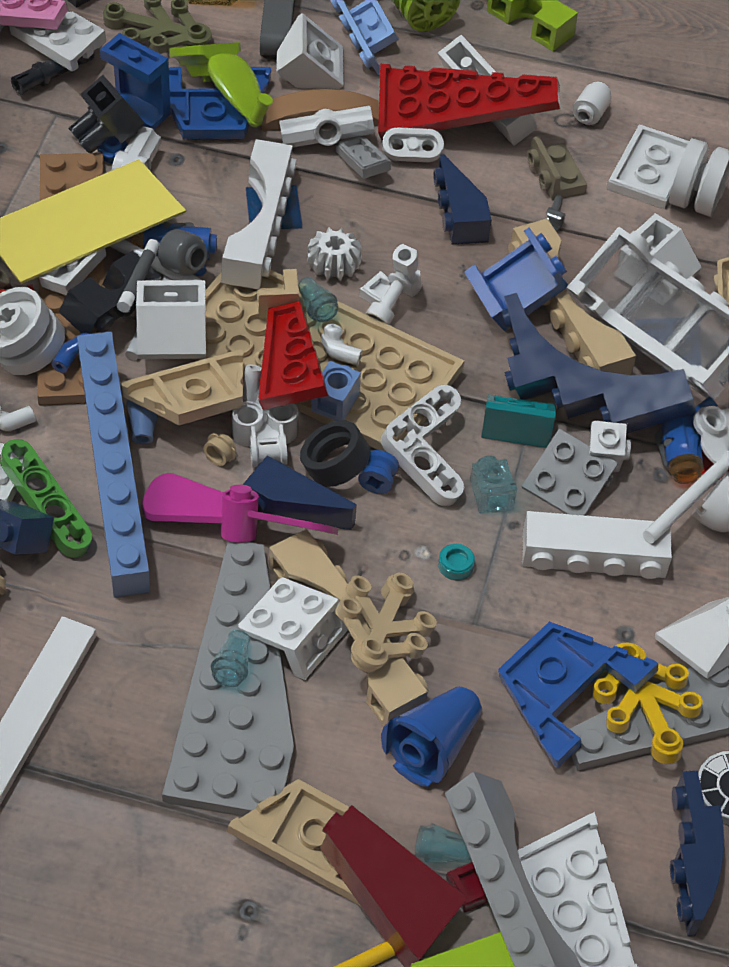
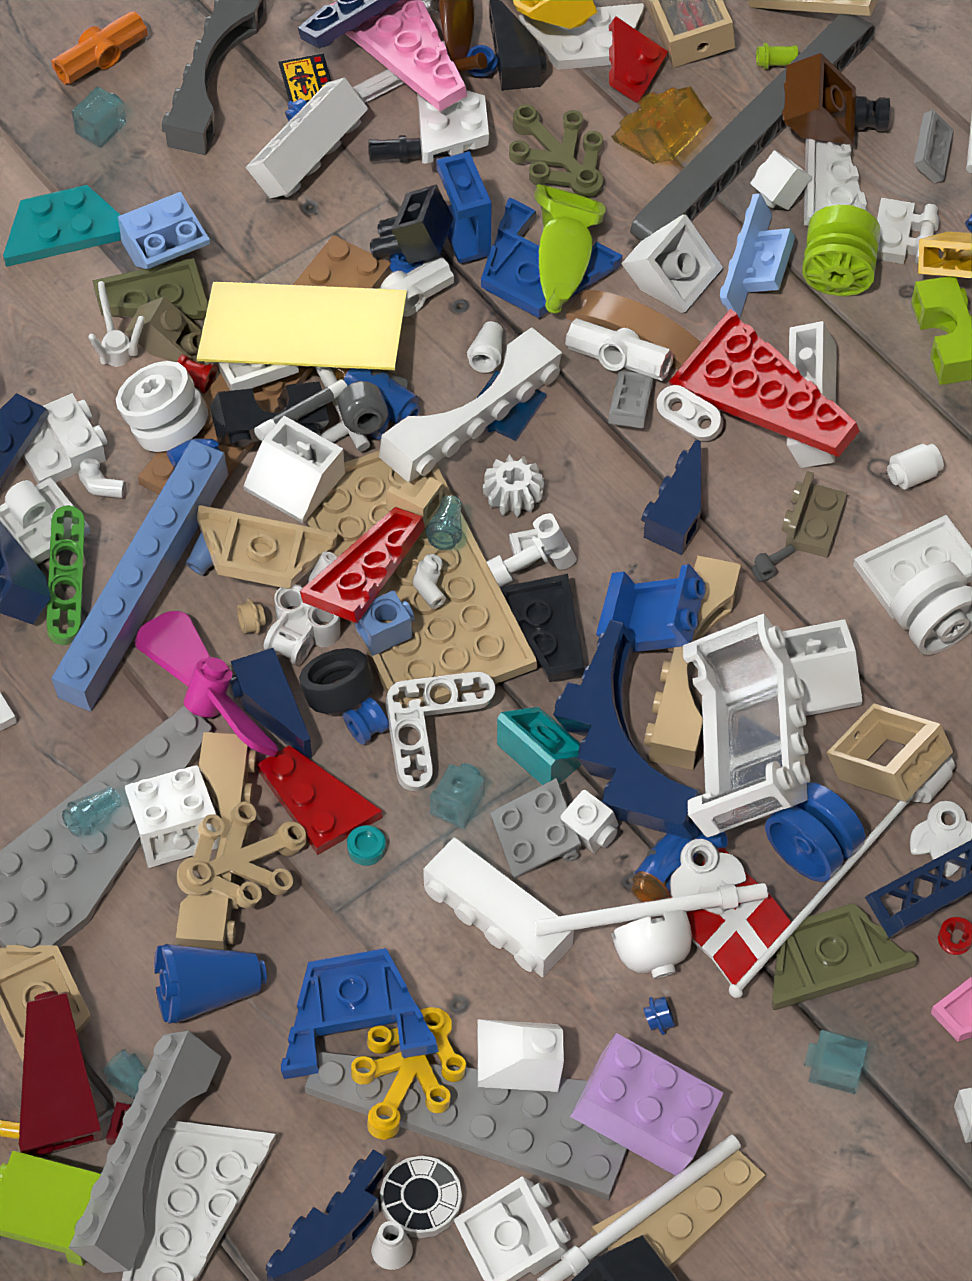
camera: 40 degrees right, 5 degrees up
(228, 175) = (486, 349): none -> white cone
(388, 550) = (316, 799): none -> red wing
(448, 329) = (549, 624): none -> black wing

